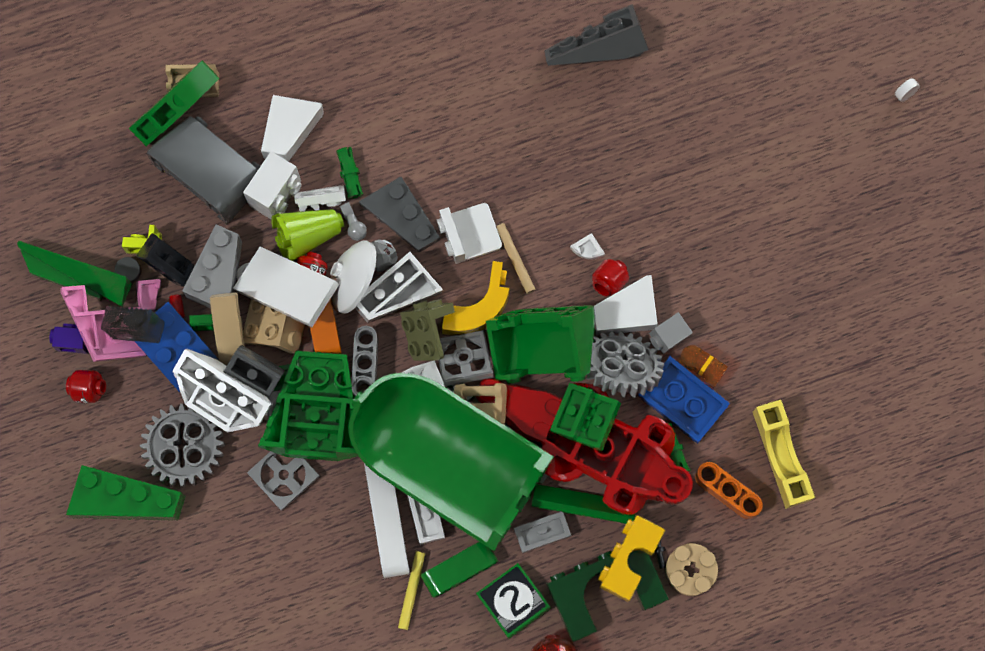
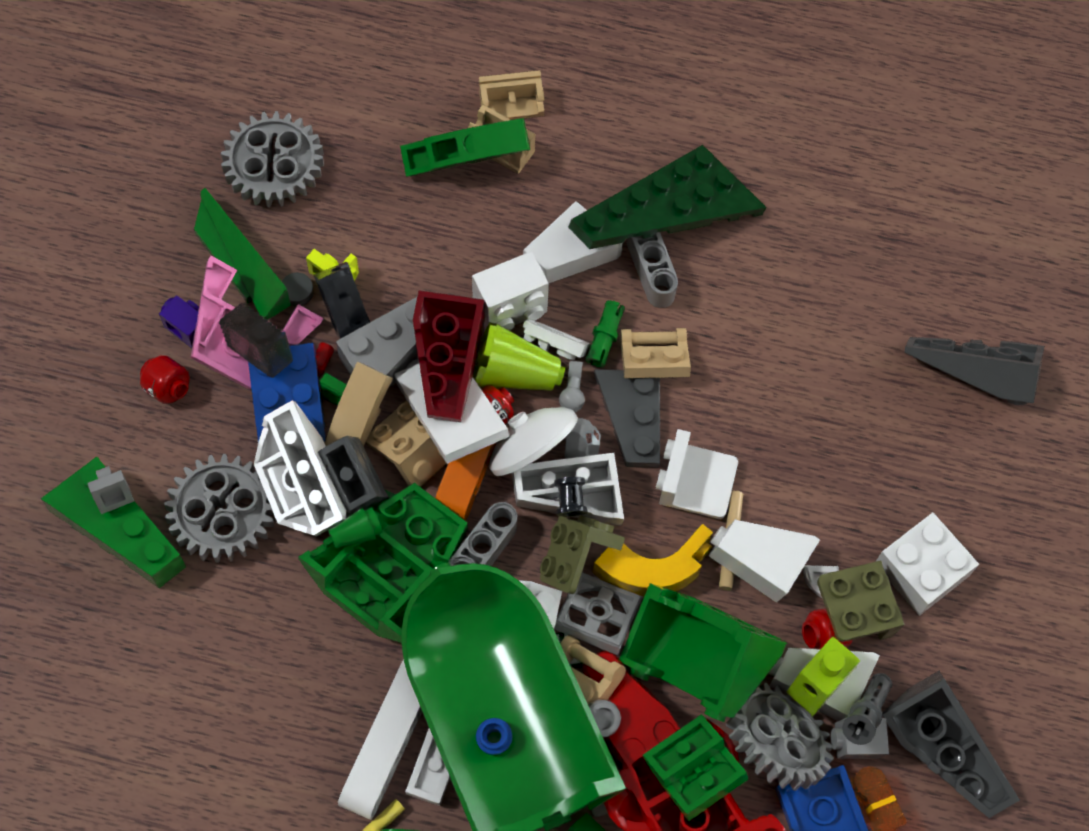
camera: 30 degrees right, 10 degrees down
(28, 202) = (243, 158): none -> light grey gear
(109, 481) = (110, 490): none -> light grey tile
(179, 44) = (513, 94): none -> tan hinge
(205, 166) = (450, 227): dark grey windscreen -> none
(257, 248) = (448, 345): none -> dark red wedge
(282, 405) = (357, 528): none -> green cone
(283, 501) = (311, 639): light grey piece -> none
(336, 52) = (672, 199): none -> dark green wing
(343, 93) = (654, 273): none -> light grey beam
(395, 170) = (655, 360): none -> tan plate
(402, 298) = (570, 496): none -> black bush
(444, 476) = (494, 725): none -> blue plate
(512, 420) = (606, 716): none -> light grey tile
(542, 256) = (763, 555): none -> white slope
(619, 249) = (860, 602): none -> olive bracket
(626, 311) = (825, 674): none -> lime torso
(644, 197) = (926, 563): none -> white brick
(664, 310) = (867, 720): none -> dark grey pin
(715, 299) = (941, 735): none -> dark grey wedge

